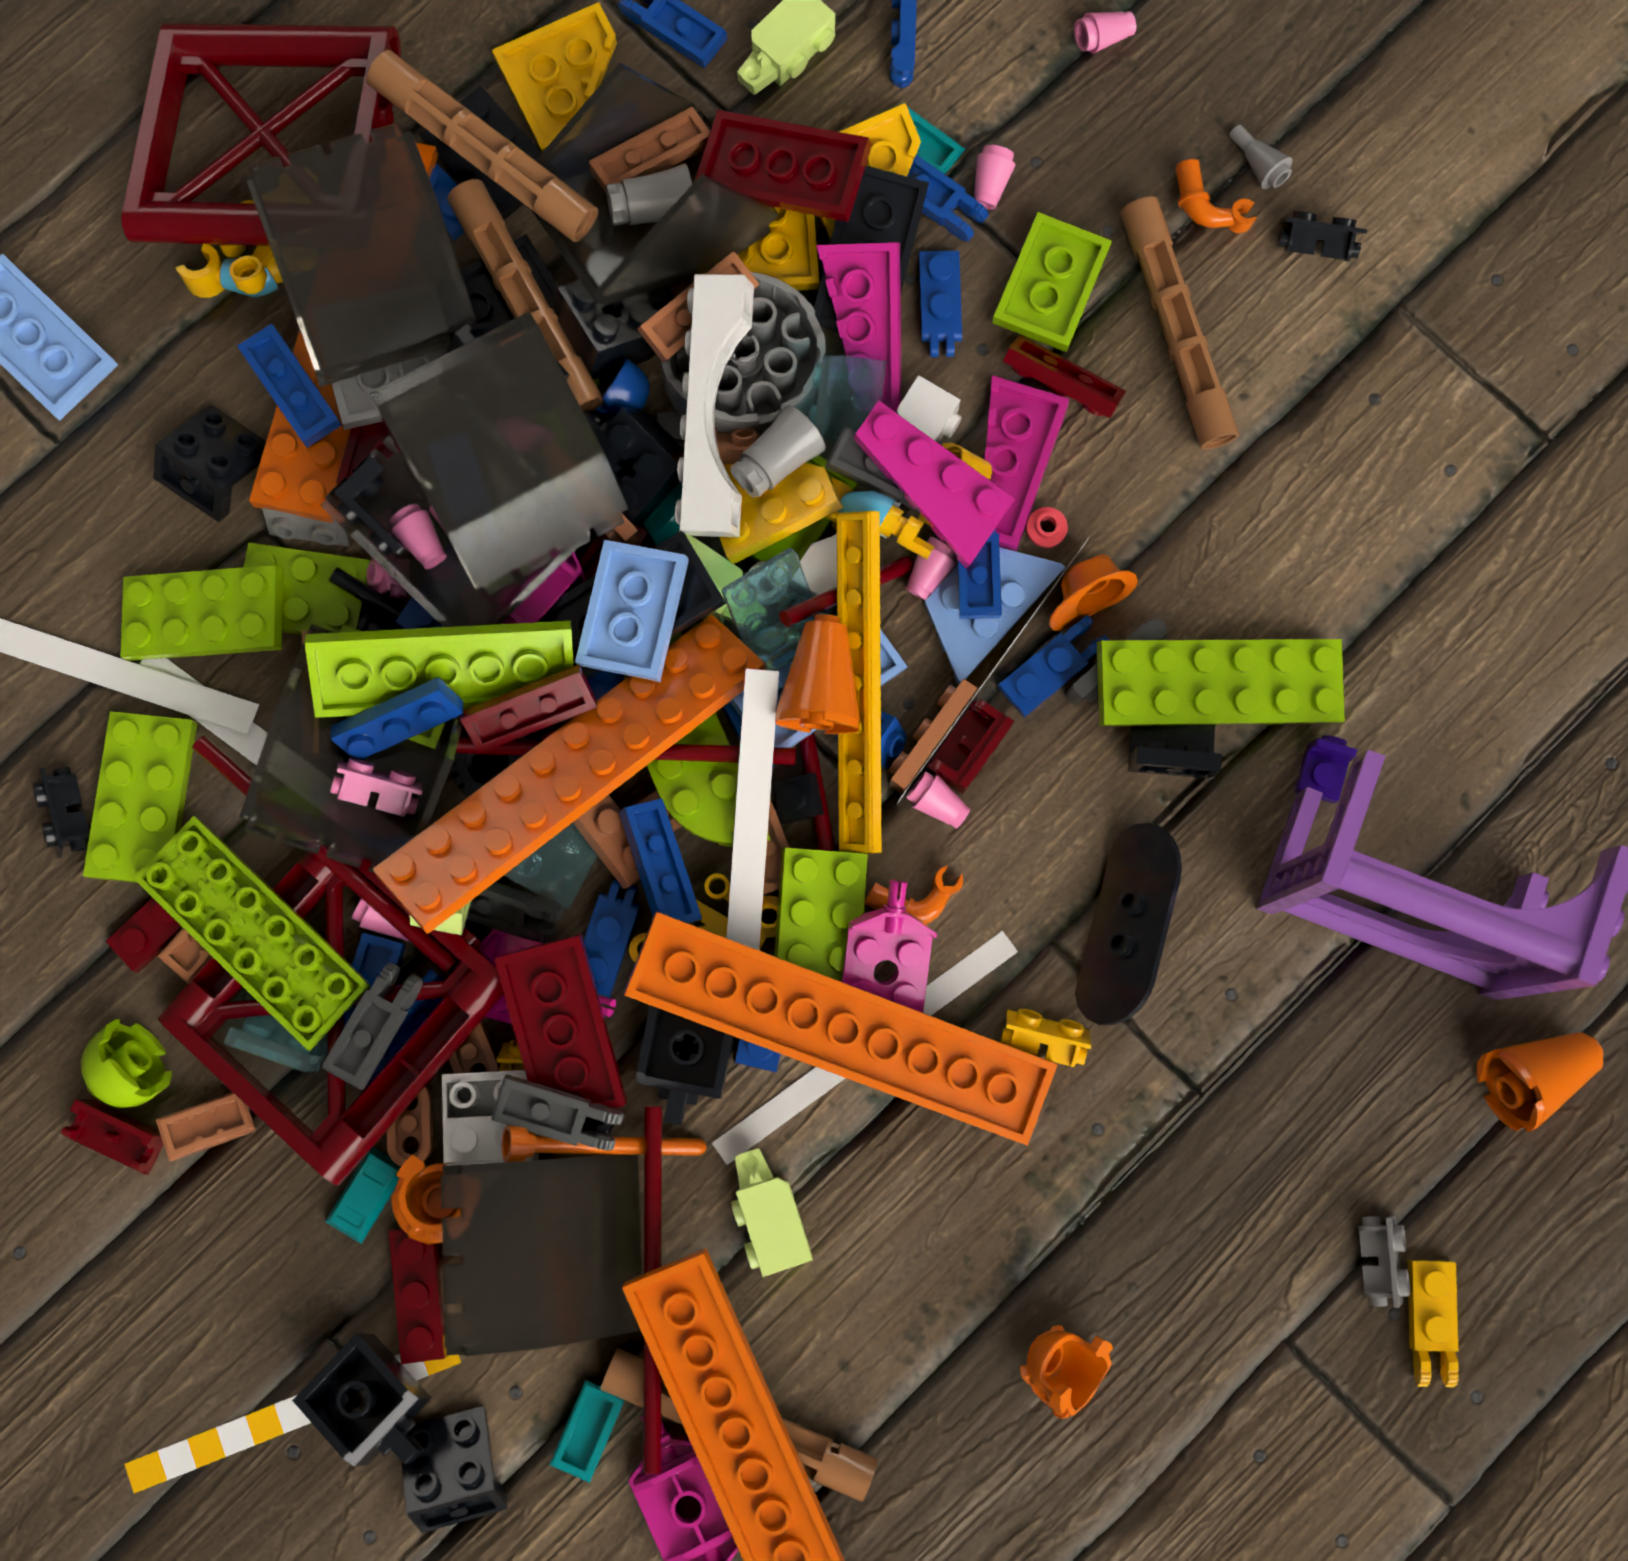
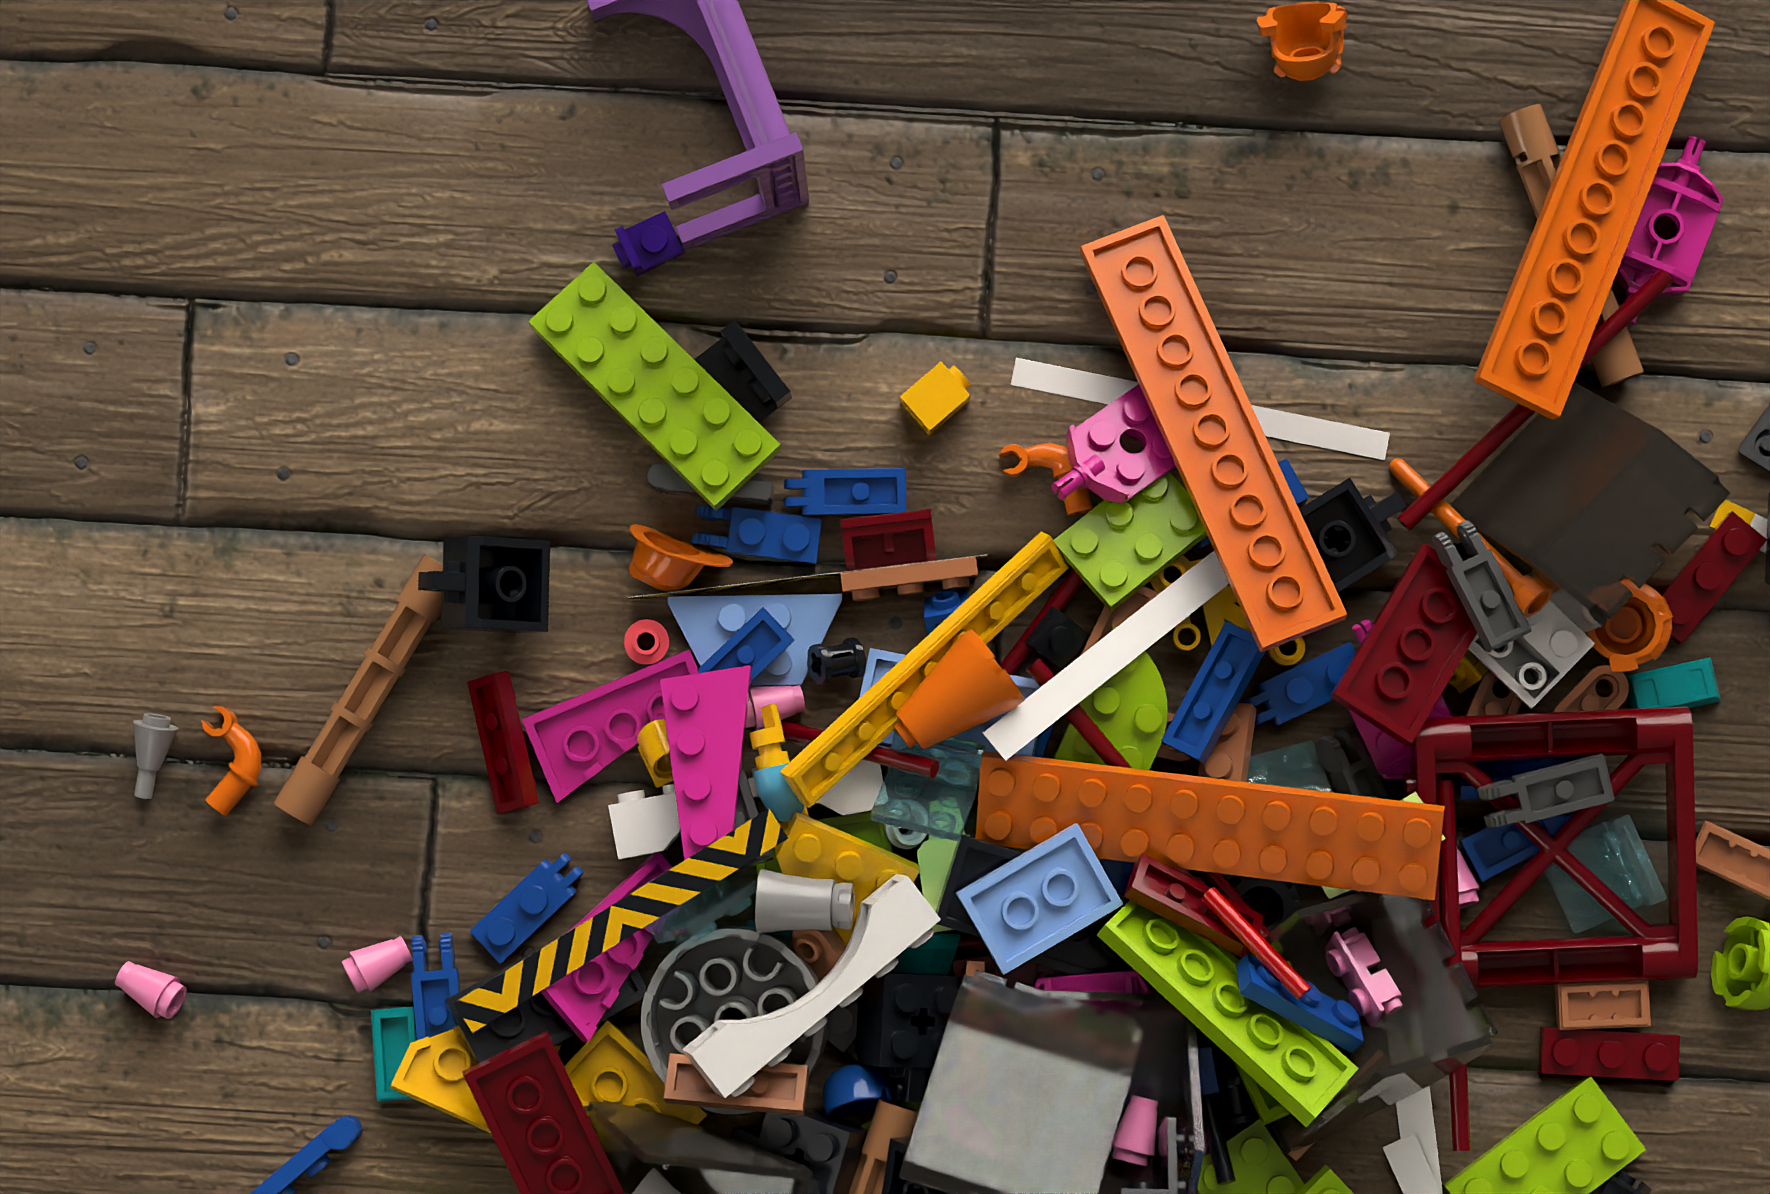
camera: 130 degrees left, 5 degrees up
(252, 932) = (1564, 963): lime plate -> none
(461, 721) = (1256, 943): none -> red bar
(587, 1432) = (1683, 354): teal tile -> none
(770, 1216) = (1398, 362): yellowish green hinge -> none
(875, 329) = (620, 920): none -> sticker
(919, 636) = (836, 661): none -> black bush
(937, 800) = (955, 526): bright pink cone -> none
(1026, 750) = (849, 492): none -> blue hinge
(1040, 867) = (936, 397): none -> yellow brick
(1051, 282) = (426, 828): lime plate -> none
(1065, 1039) = (1053, 257): yellow hinge -> none
(1129, 925) = (921, 286): black piece -> none
(1198, 438) = (492, 584): none -> black hinge
(1336, 237) = (184, 656): black hinge -> none

